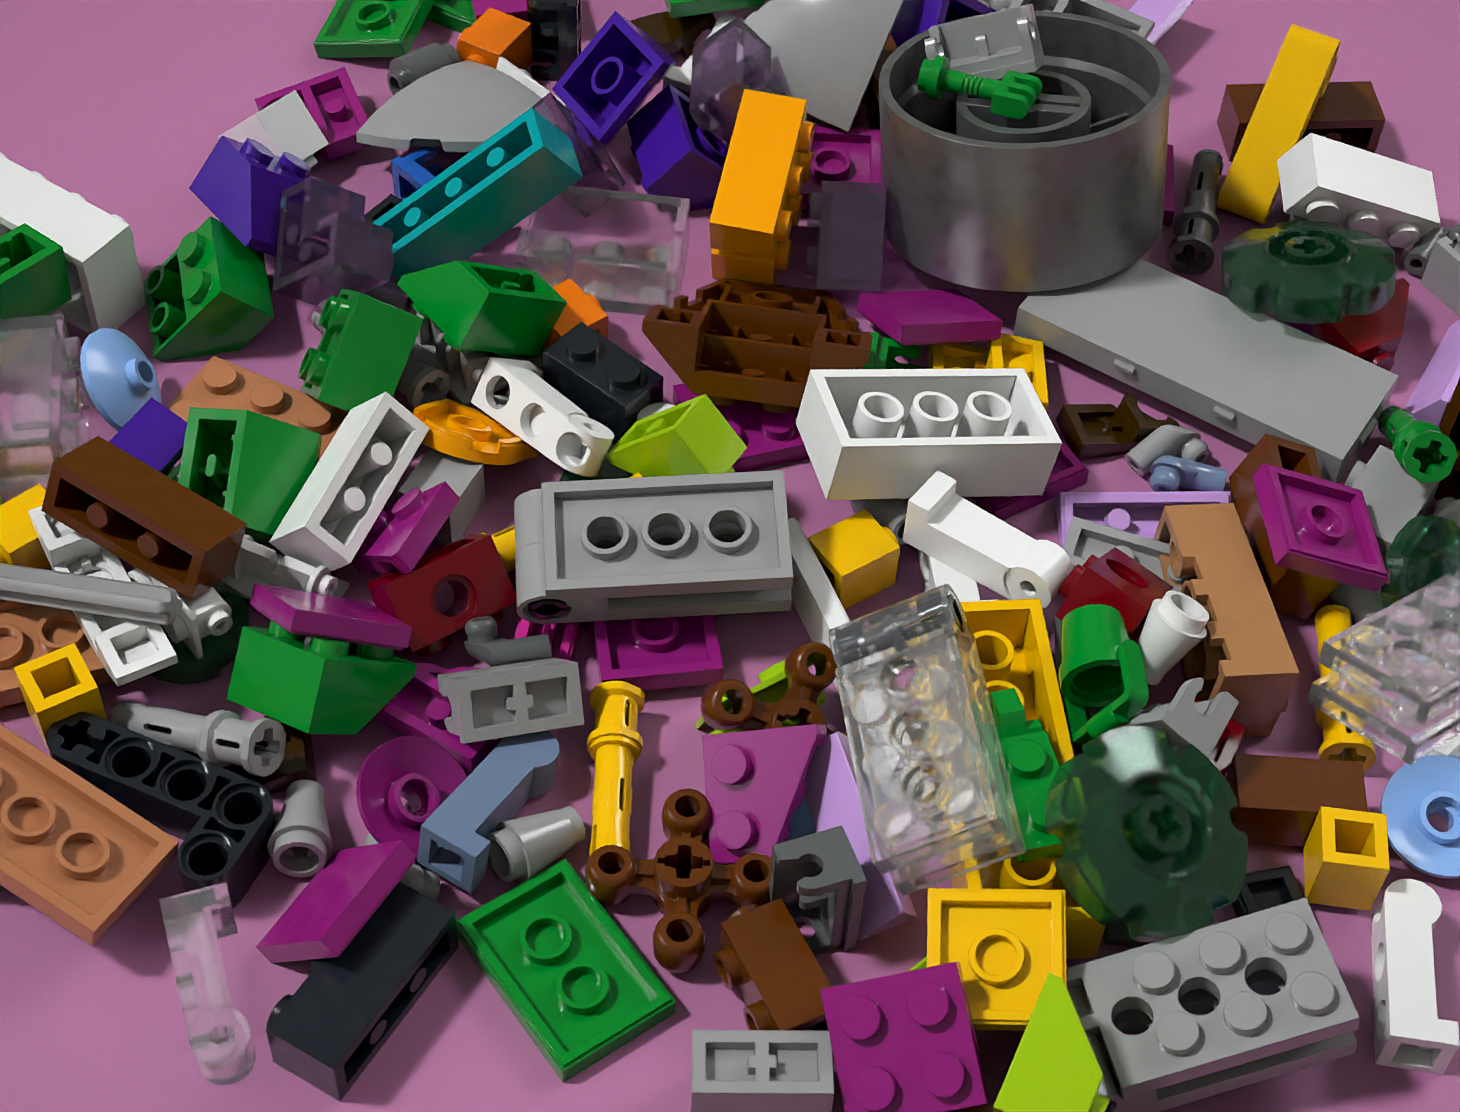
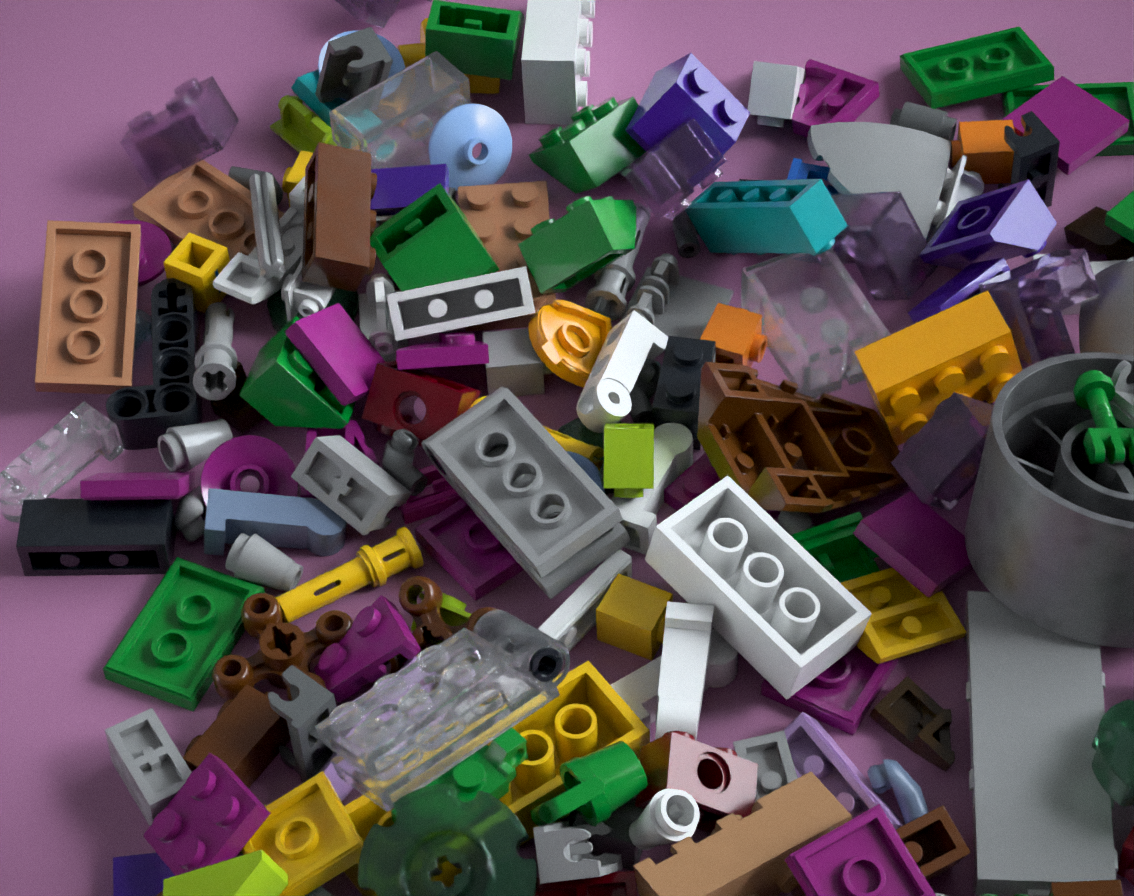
camera: 65 degrees right, 0 degrees up
(486, 306) = (674, 283): green slope -> none
(1167, 441) = (932, 769): light grey arm -> none

